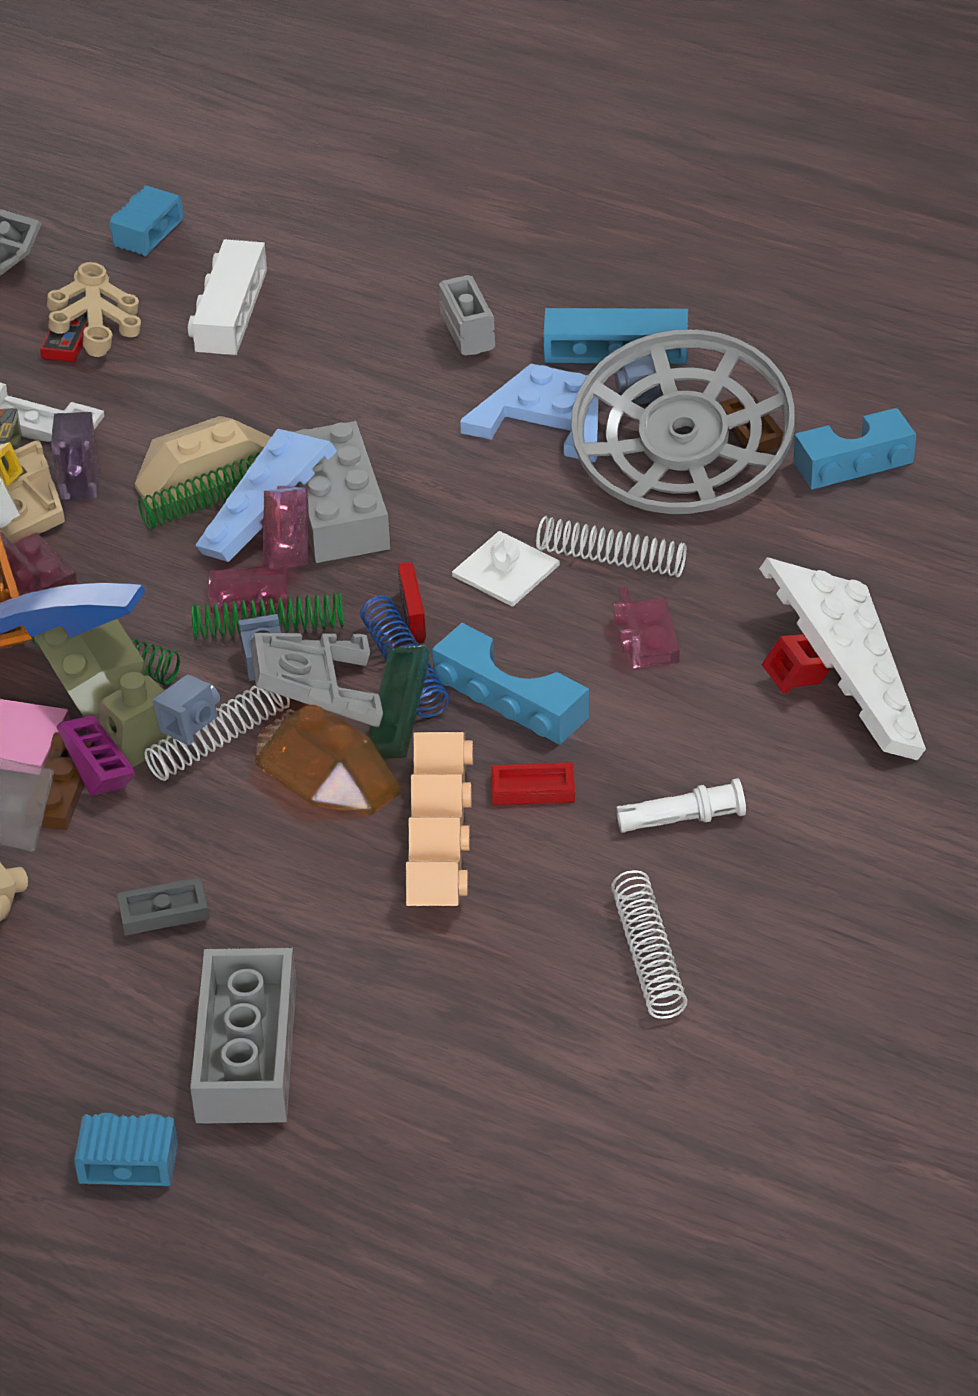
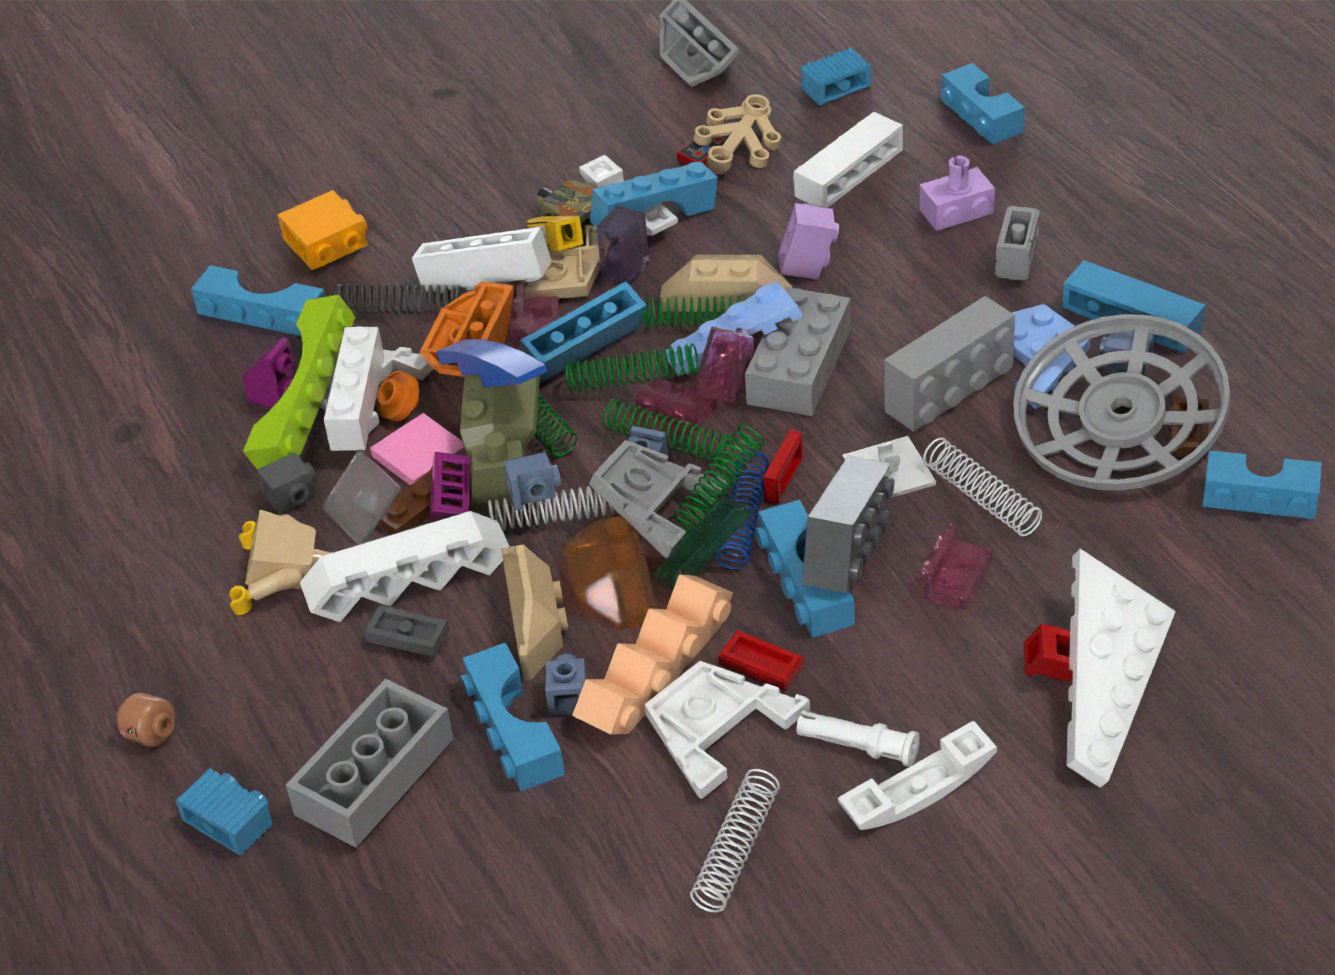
camera: 35 degrees right, 0 degrees up
(88, 378) = (688, 187): none -> dark azure arch
(102, 846) = (389, 564): none -> white brick
(110, 540) = (585, 330): none -> dark azure brick
(254, 546) = (688, 352): none -> green piece
(264, 383) = (807, 241): none -> lavender brick
(272, 827) = (533, 608): none -> tan wedge
(339, 207) = (968, 95): none -> dark azure arch
(367, 876) = (564, 677): none -> sand blue brick
(368, 293) = (957, 197): none -> lavender brick
(368, 637) = (745, 437): none -> green piece
(384, 957) = (526, 747): none -> dark azure arch
(499, 447) = (949, 363): none -> light grey brick
(519, 847) = (705, 707): none -> white wing
(539, 622) = (847, 524): none -> dark grey brick
(771, 817) = (922, 783): none -> white slope

